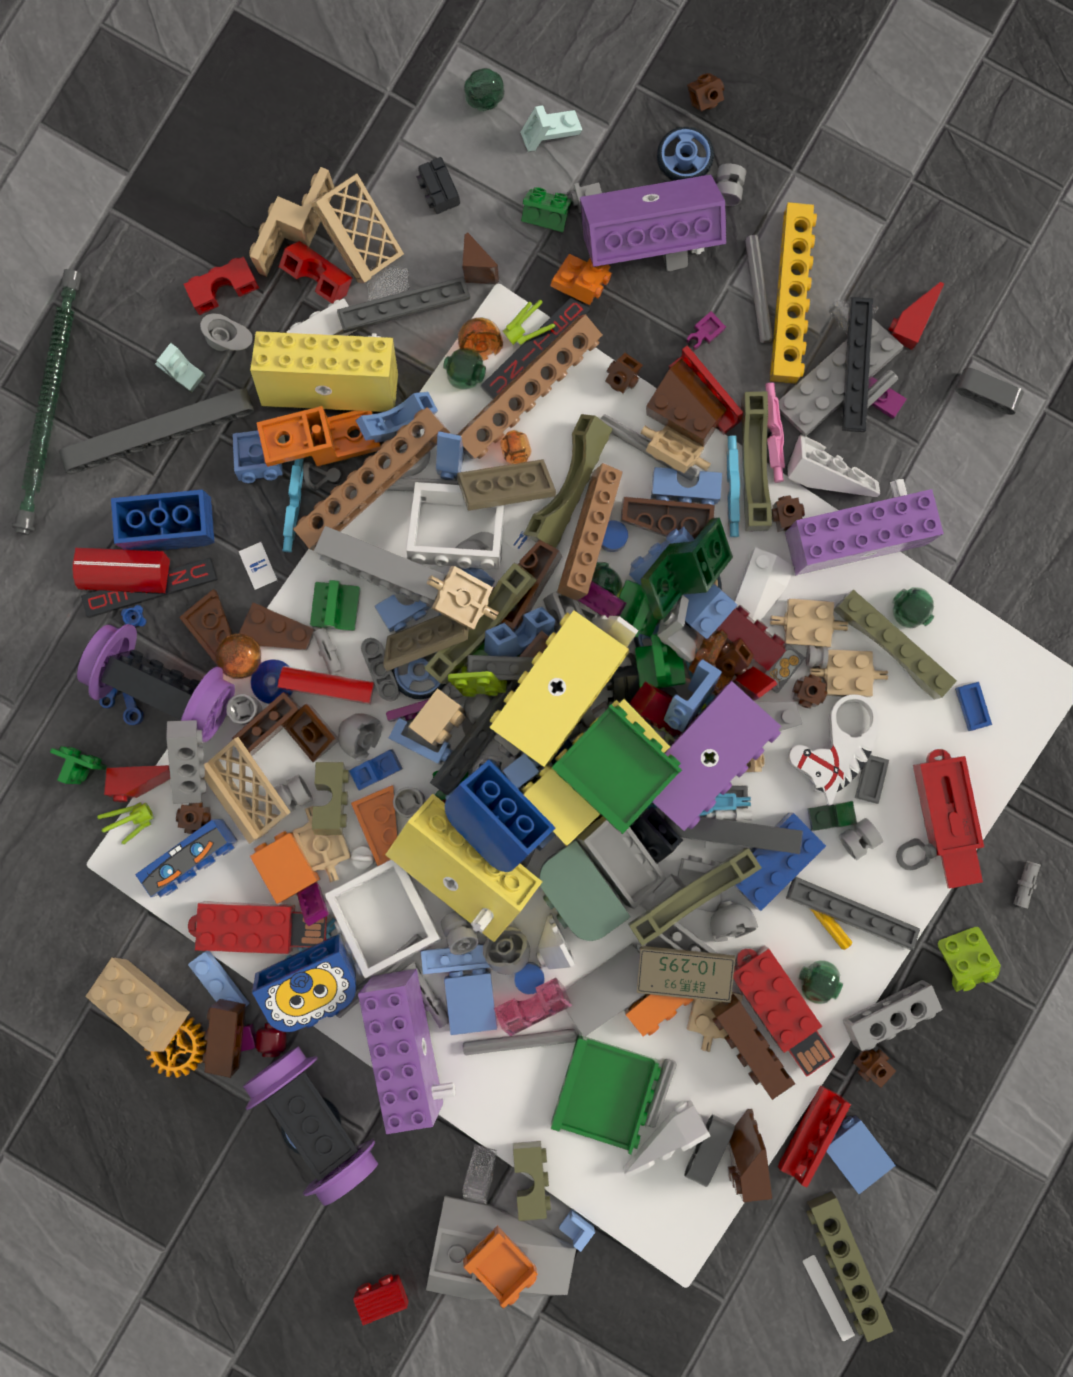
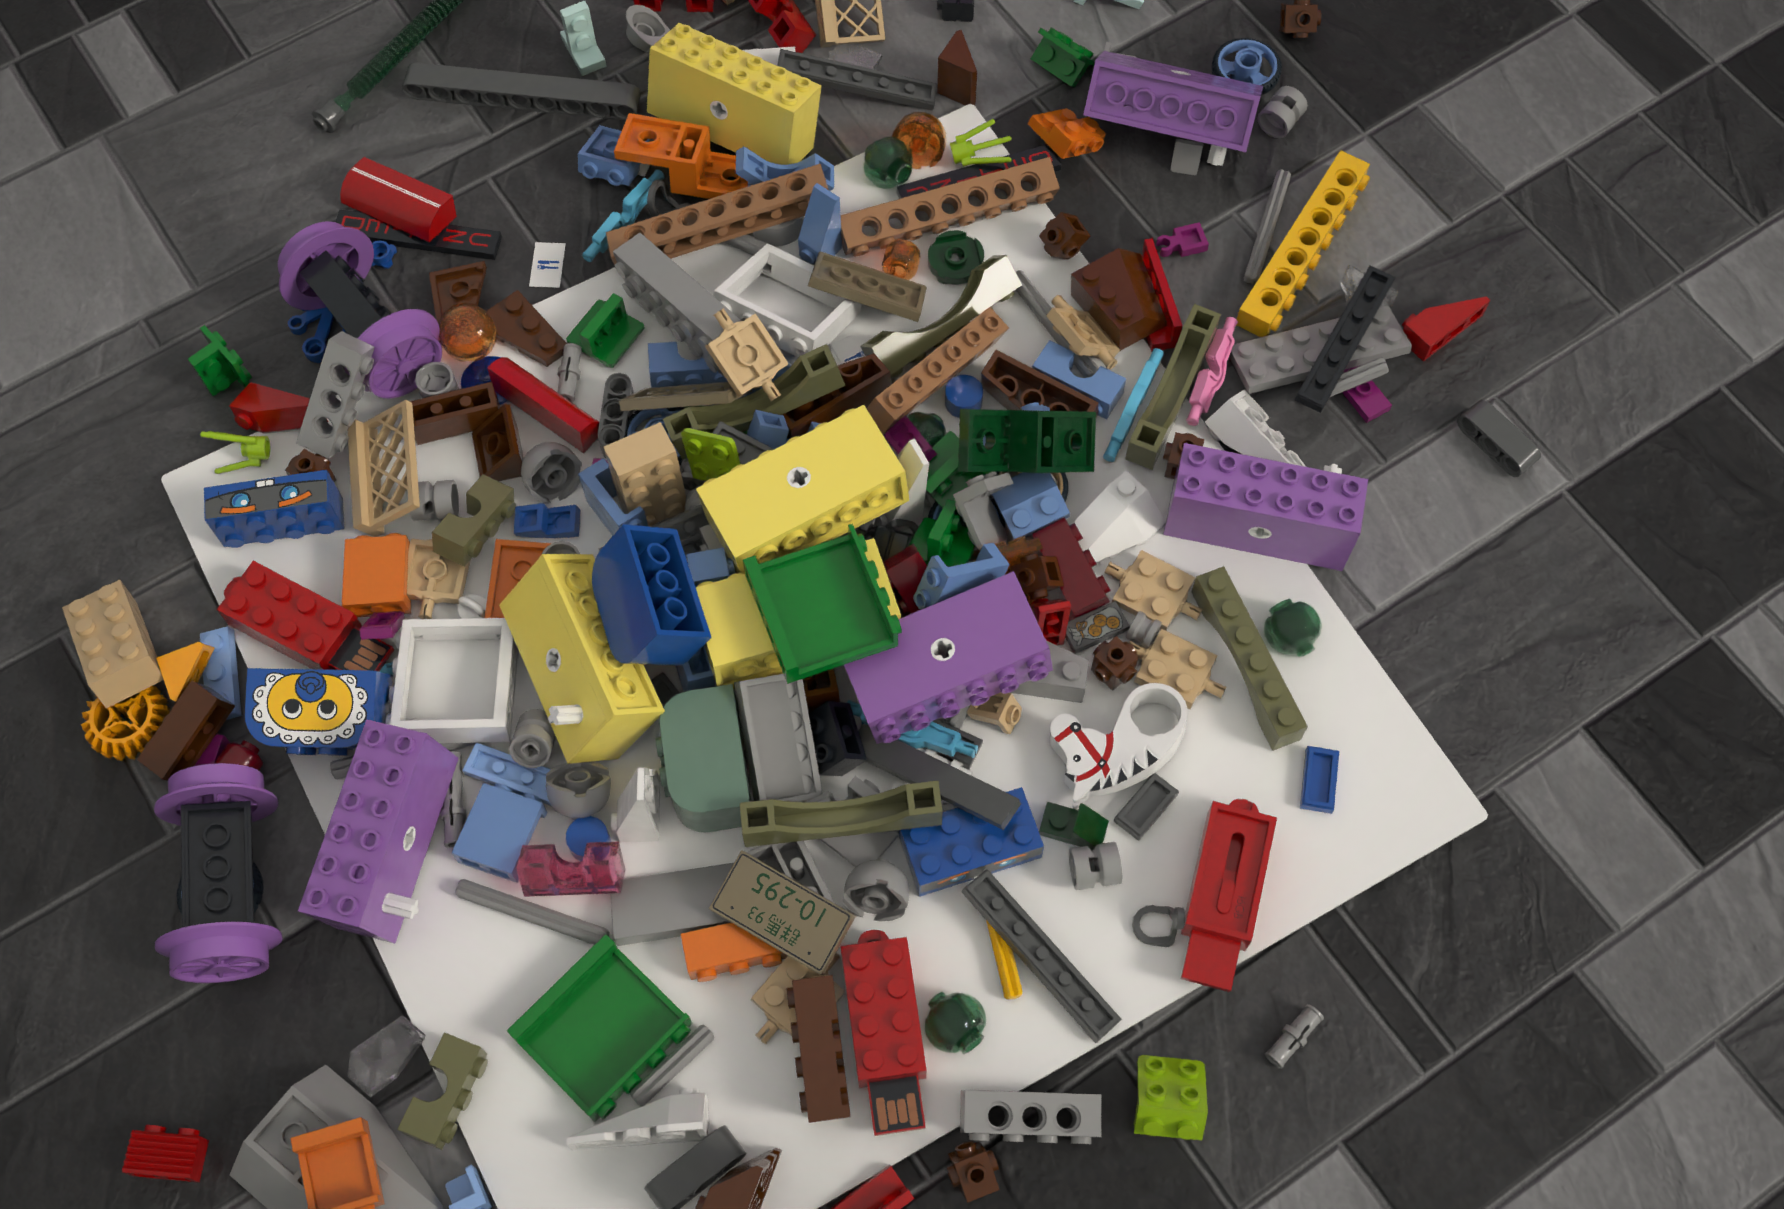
camera: 25 degrees right, 20 degrees down
(163, 521) = (472, 163): blue brick -> none
(196, 1000) = (183, 666): none -> light orange slope
(553, 412) = (941, 252): none -> dark green plate

